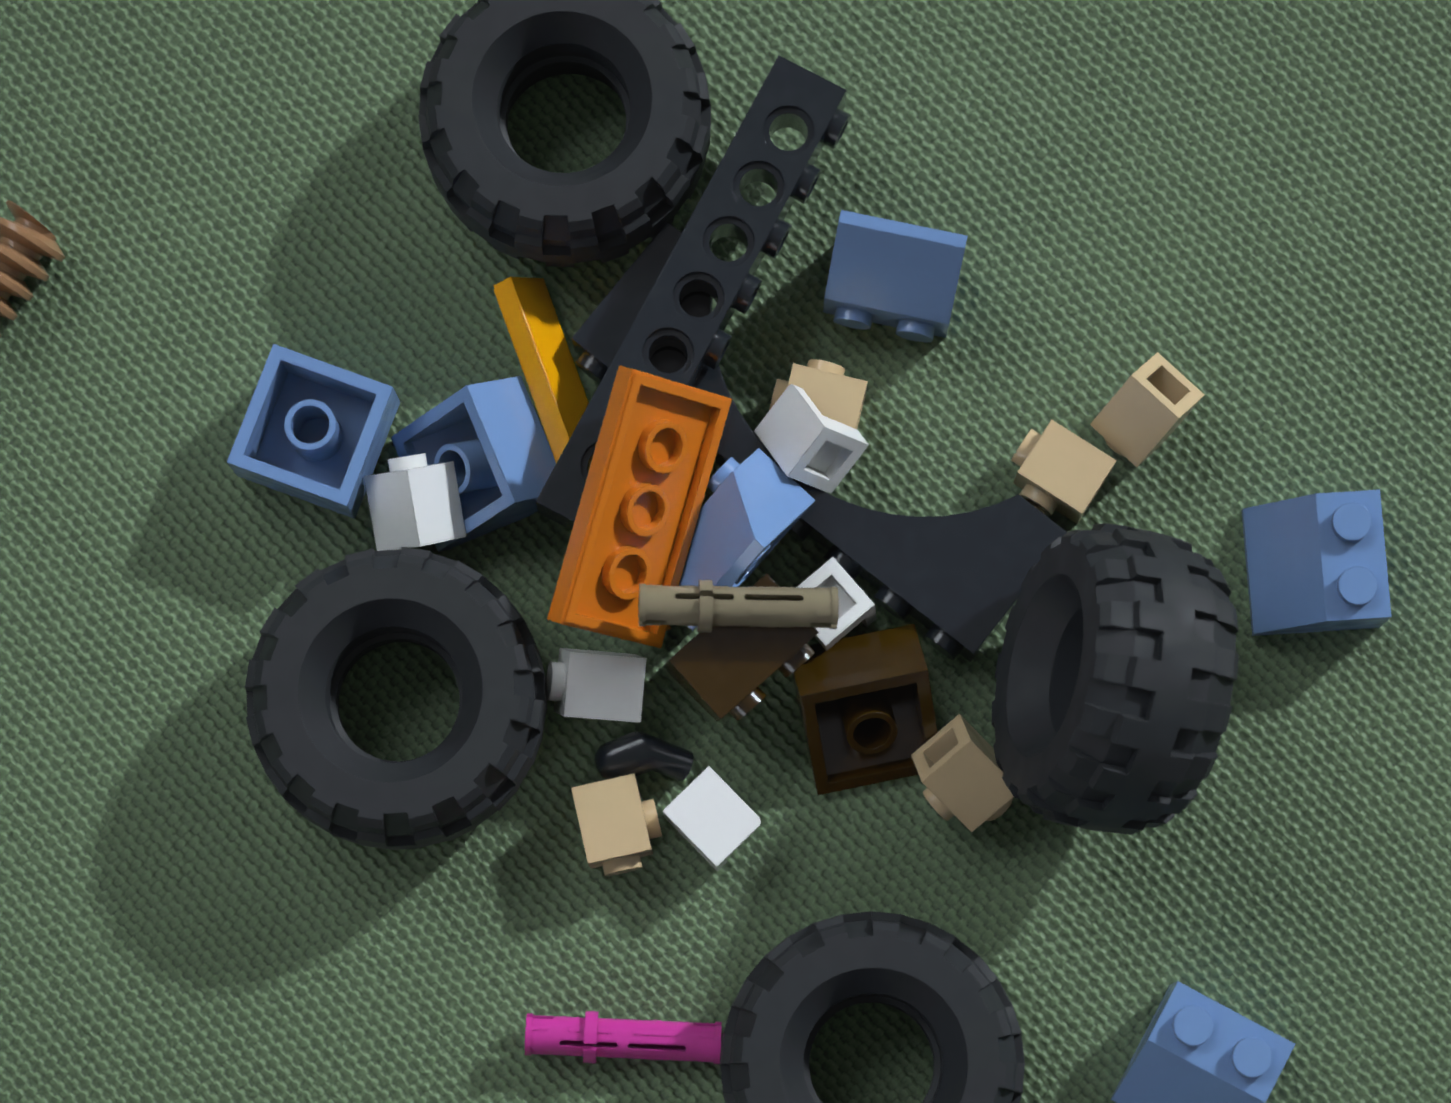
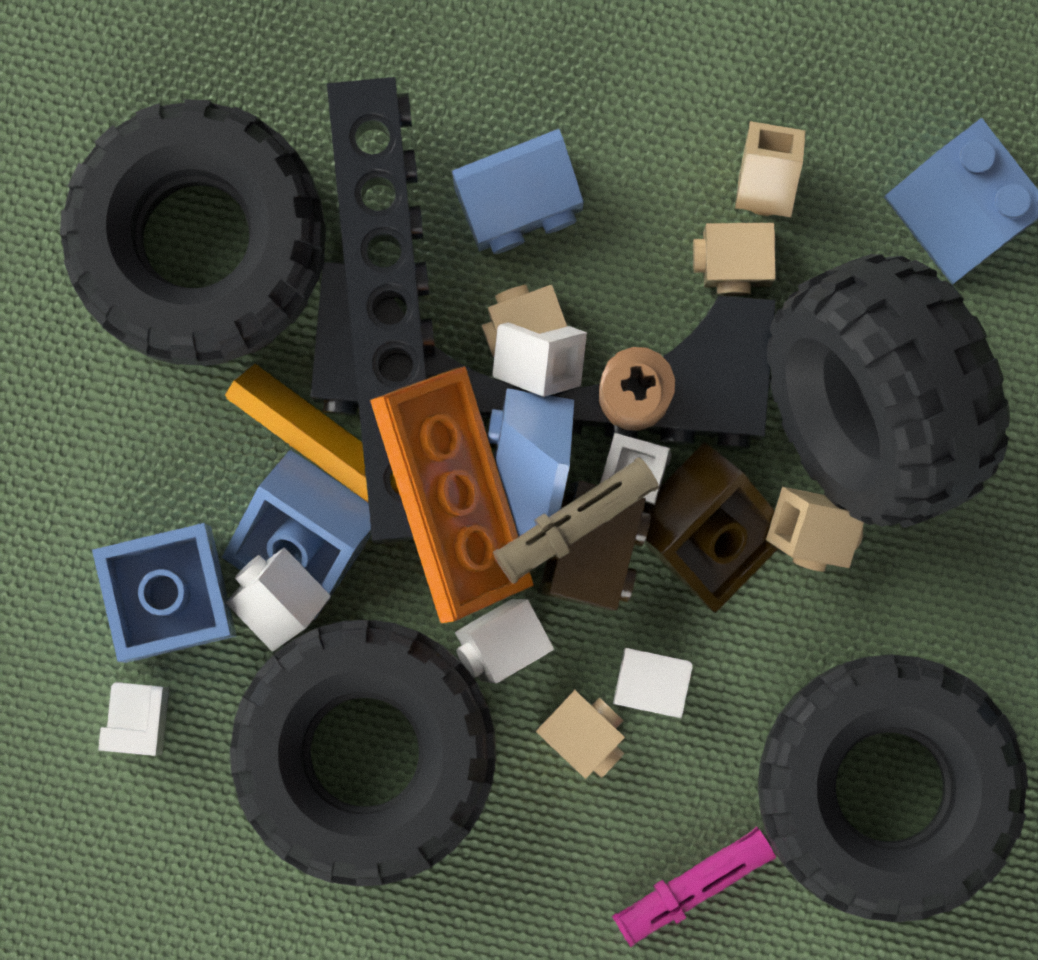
camera: 35 degrees left, 5 degrees up
(209, 533) = (135, 719): none -> white panel
(641, 754) = (567, 670): black arm -> none
(860, 505) = (651, 372): none -> medium nougat piece

